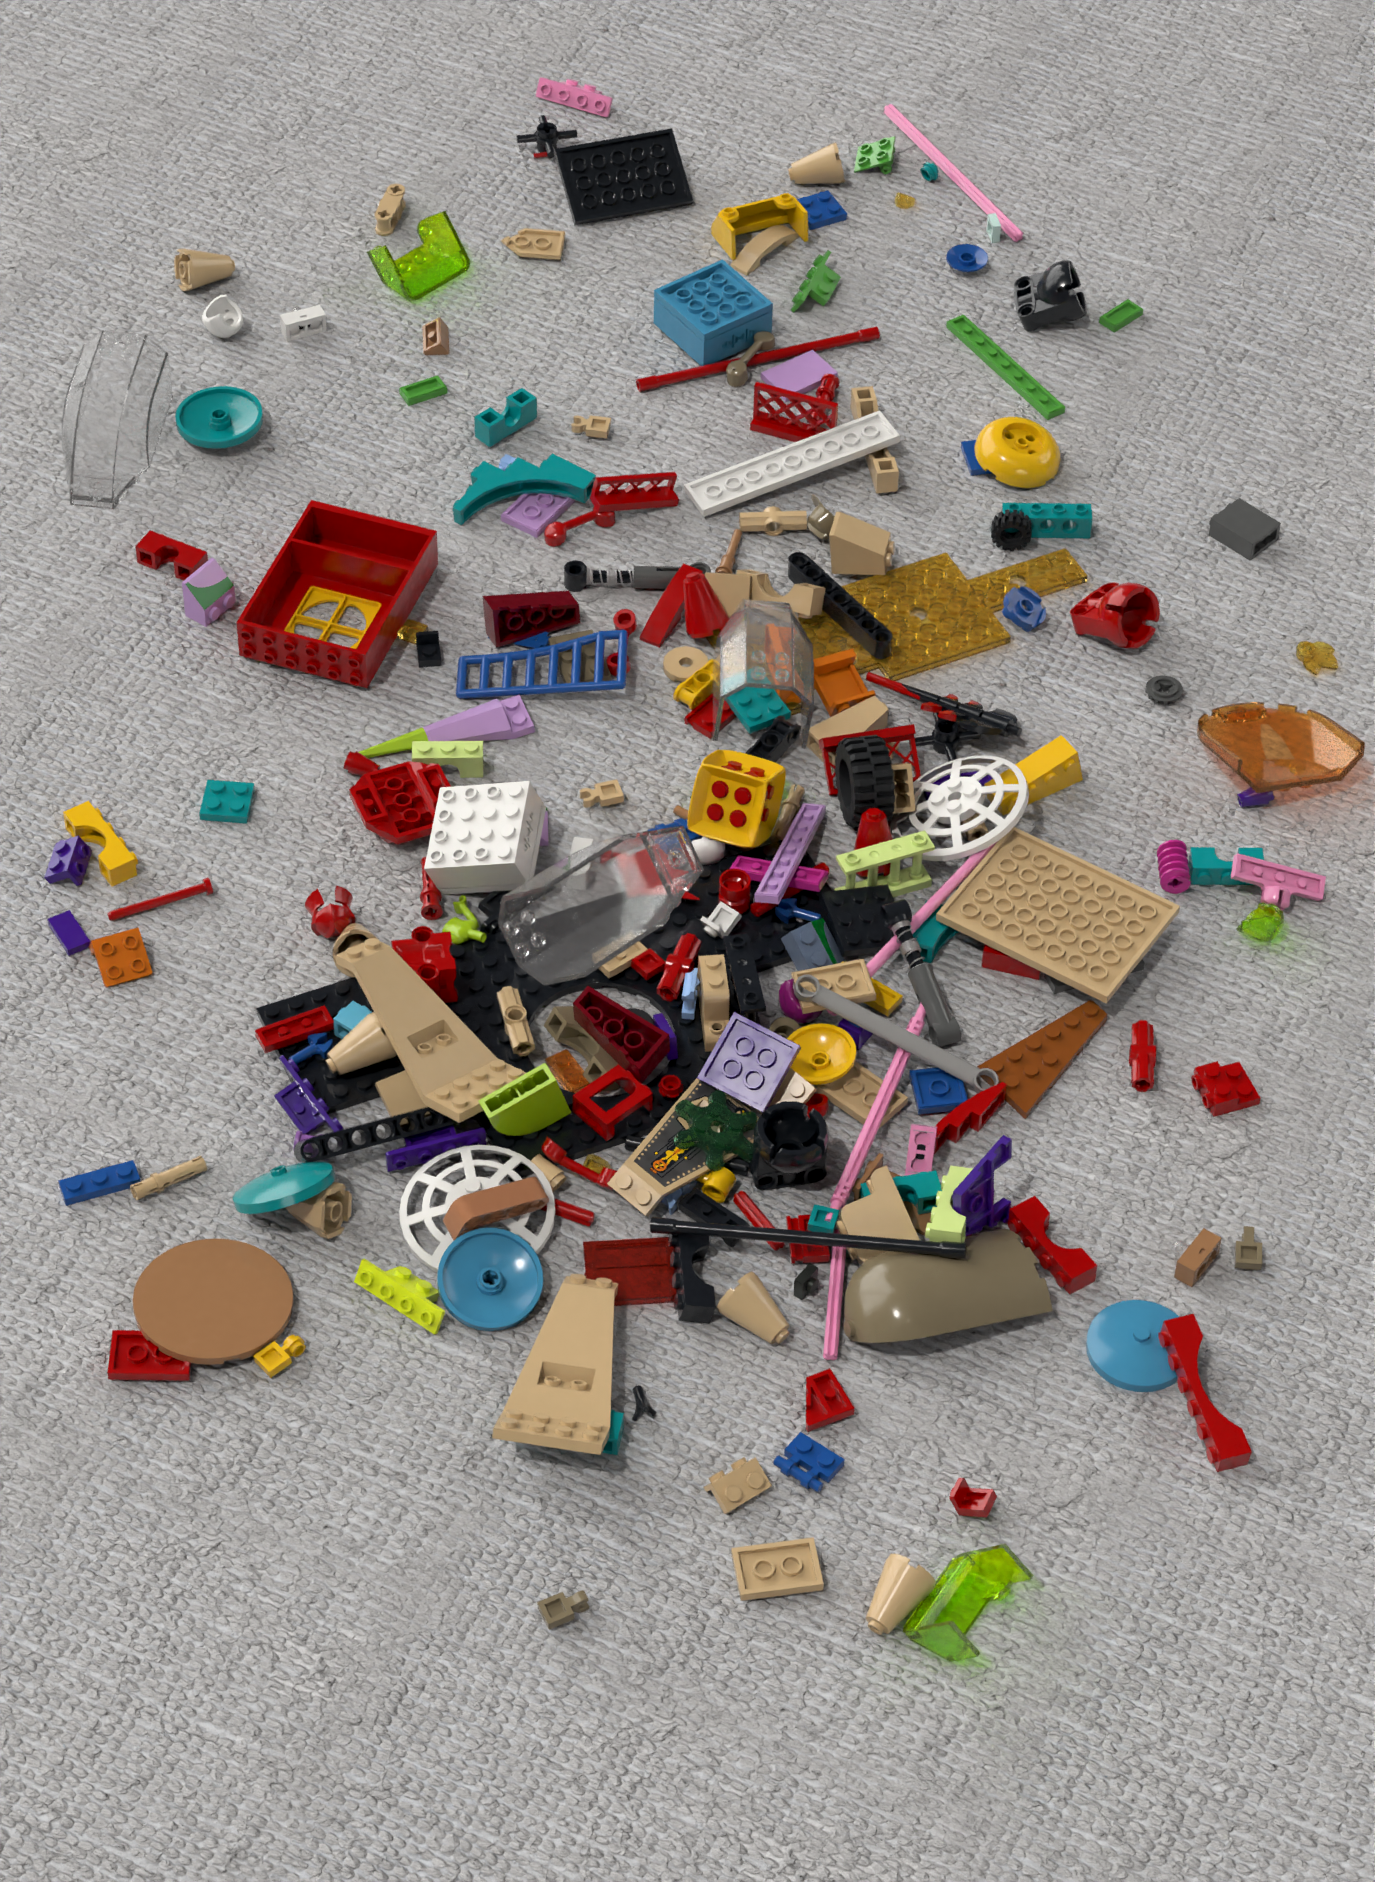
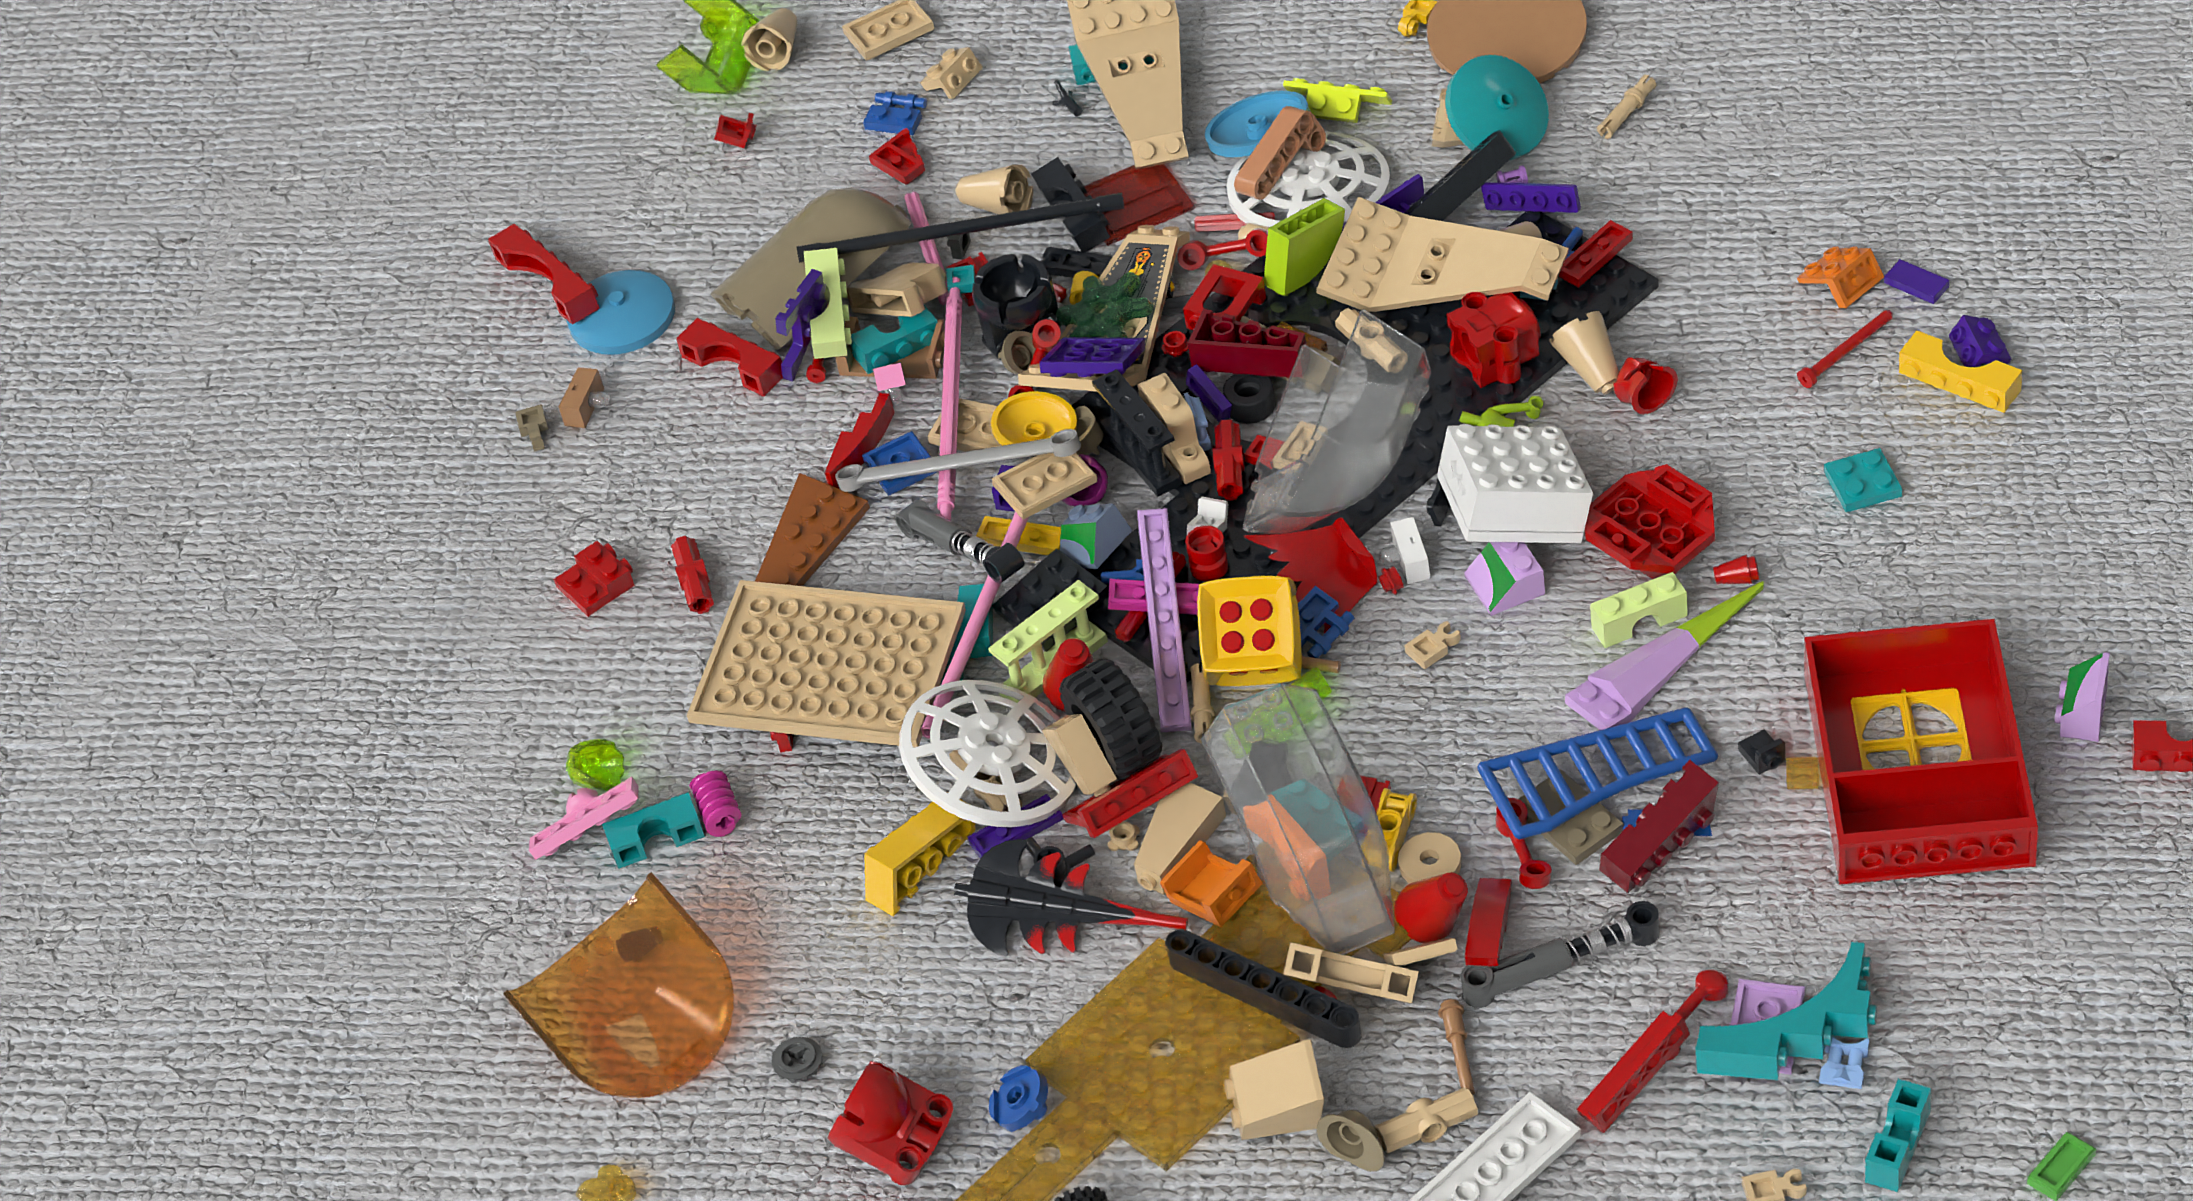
camera: 170 degrees right, 0 degrees up
(98, 1182) = (1691, 84): blue plate -> none

